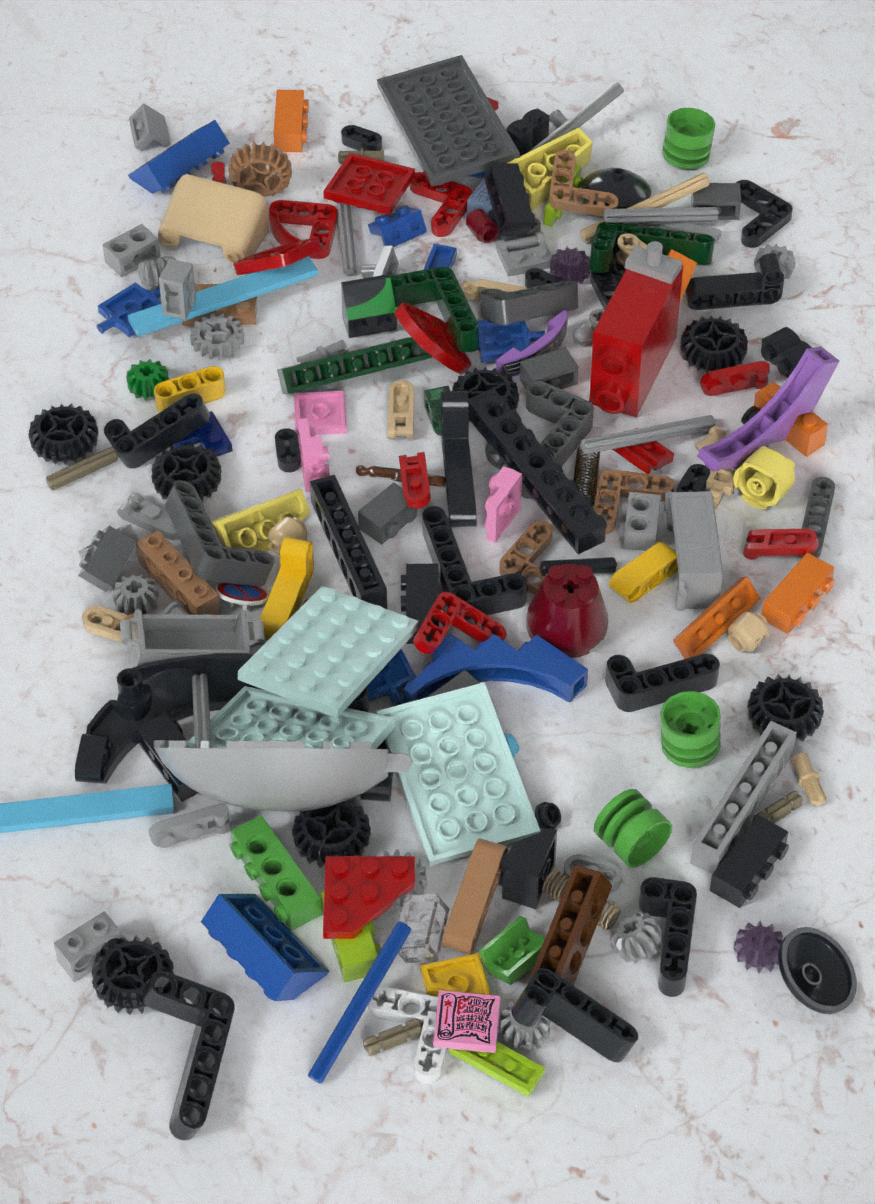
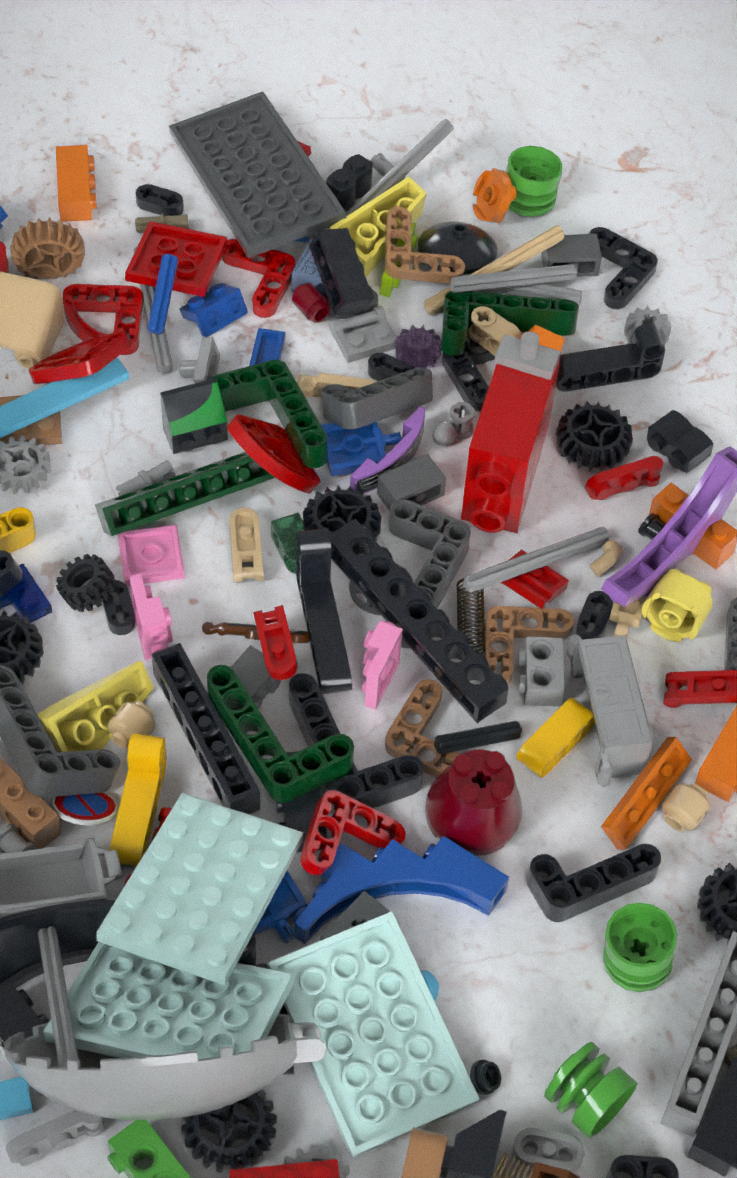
camera: 10 degrees left, 5 degrees up
(262, 427) = (80, 572): none -> black tyre
(353, 209) = (162, 294): none -> blue axle
(406, 577) = (264, 743): none -> dark green beam
(653, 147) = (493, 195): none -> orange plate

